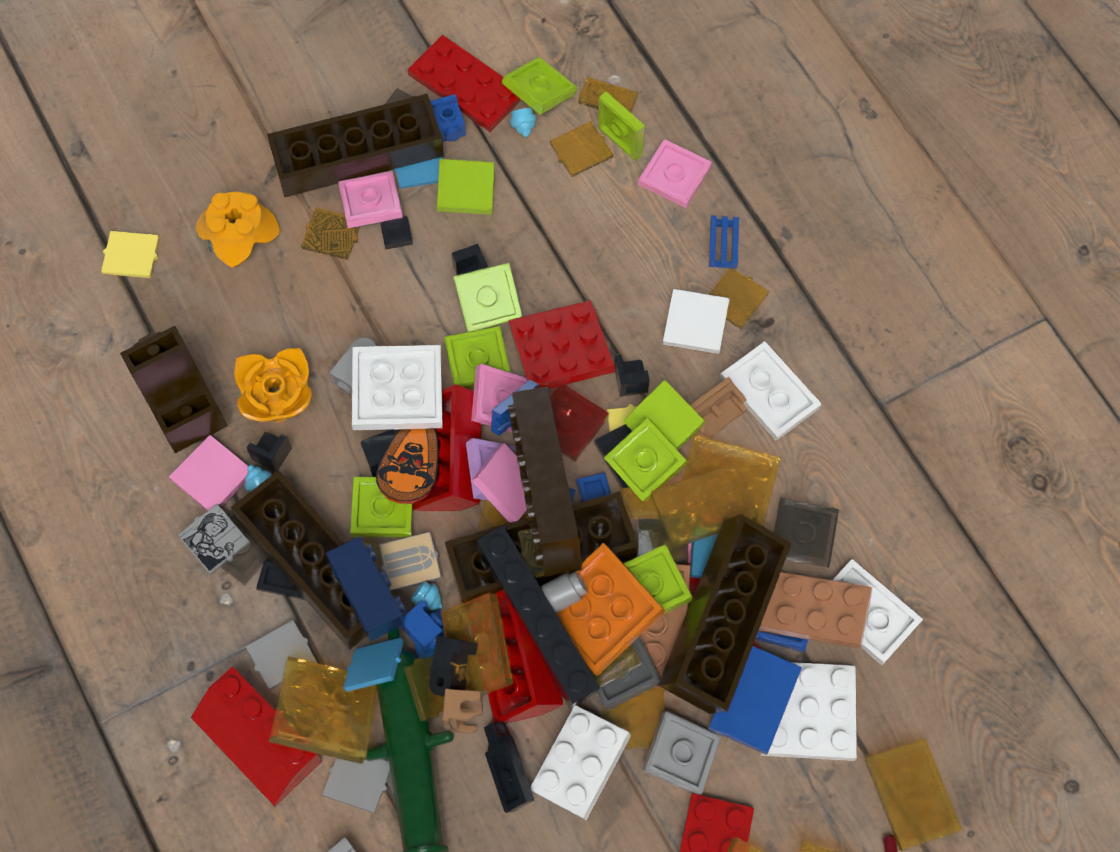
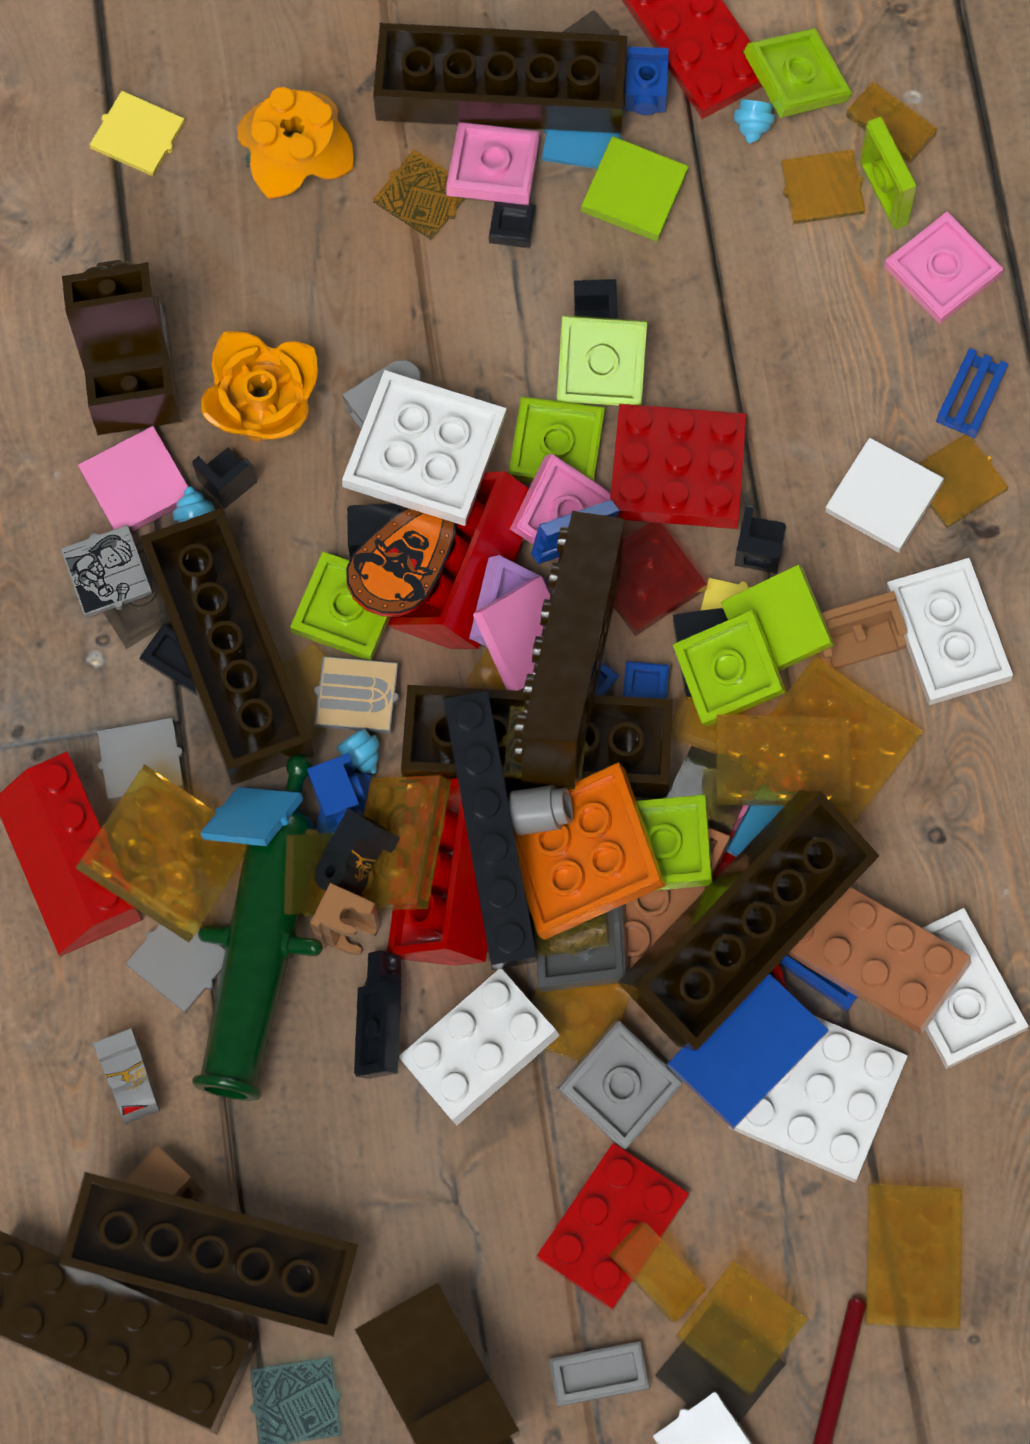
camera: 25 degrees right, 5 degrees up
(366, 588) = (277, 710): dark blue brick -> none
(809, 529) = (917, 846): clear smoke tile -> none

